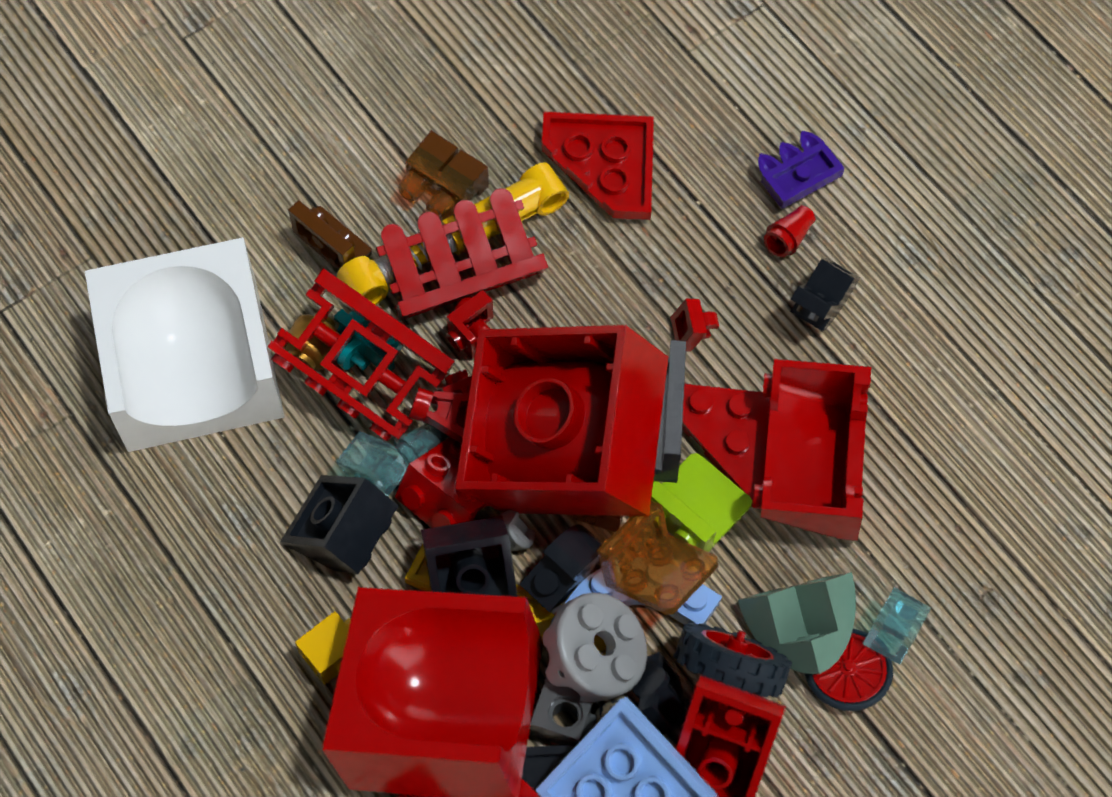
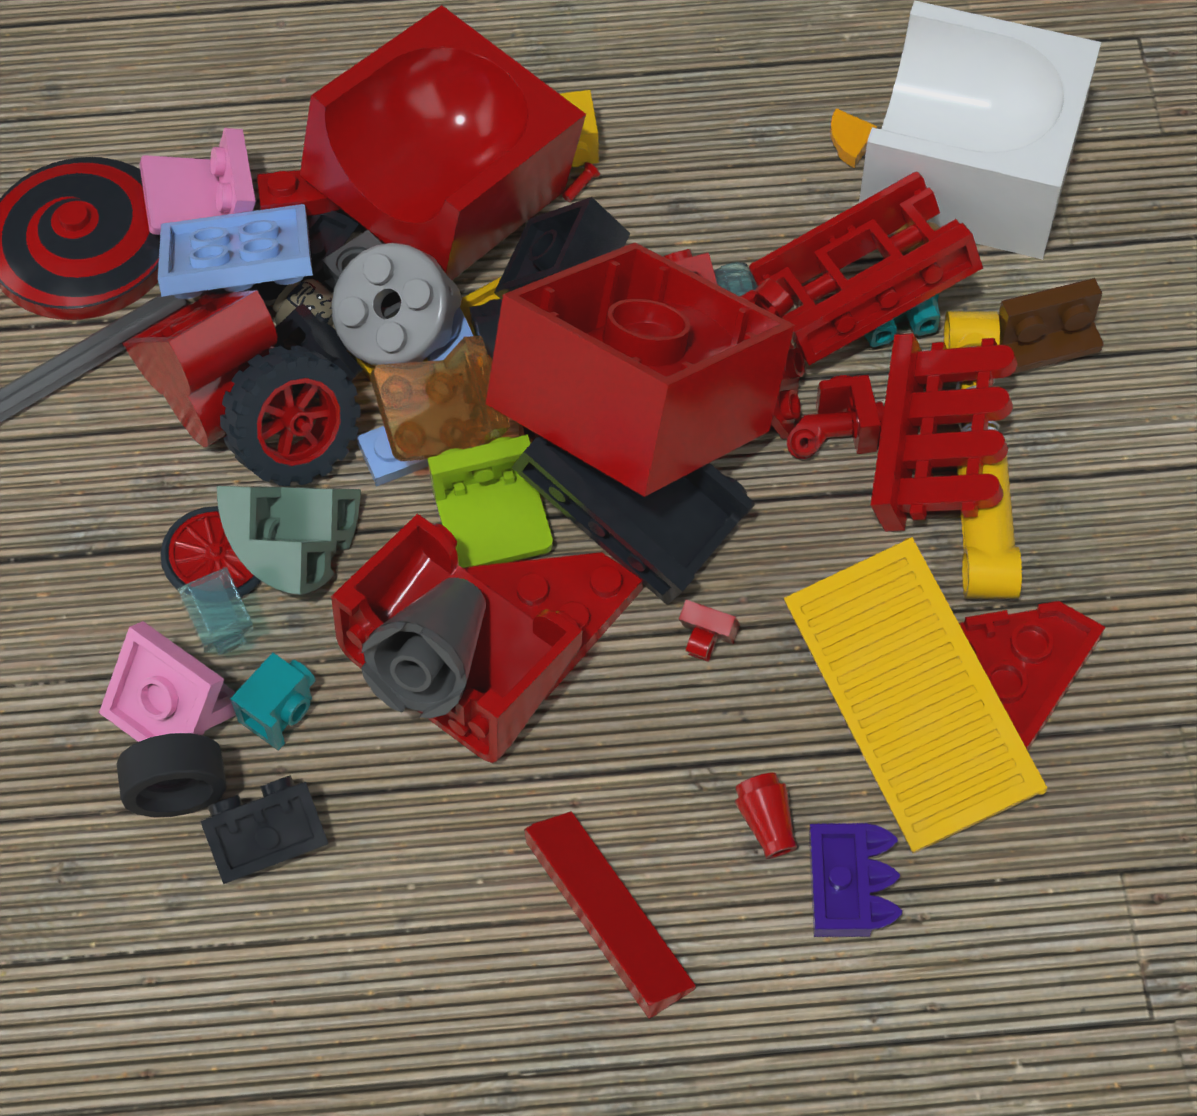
camera: 125 degrees right, 5 degrees down
(216, 452) = (849, 136): none -> light orange tile
(341, 523) = (693, 192): black slope -> none
(373, 460) = (737, 235): clear light blue brick -> none
(443, 175) = (1072, 481): clear orange hips -> none
(658, 191) = (914, 695): none -> yellow window
(824, 294) = (649, 784): black brick -> none
(841, 444) = (426, 650): none -> dark grey cone
(907, 285) = (609, 913): none -> red slope
(925, 550) = (274, 698): none -> teal brick
(972, 612) = (163, 689): none -> bright pink bracket
(1007, 503) = (264, 829): none -> black bracket
(1028, 564) = (171, 775): none -> black tyre

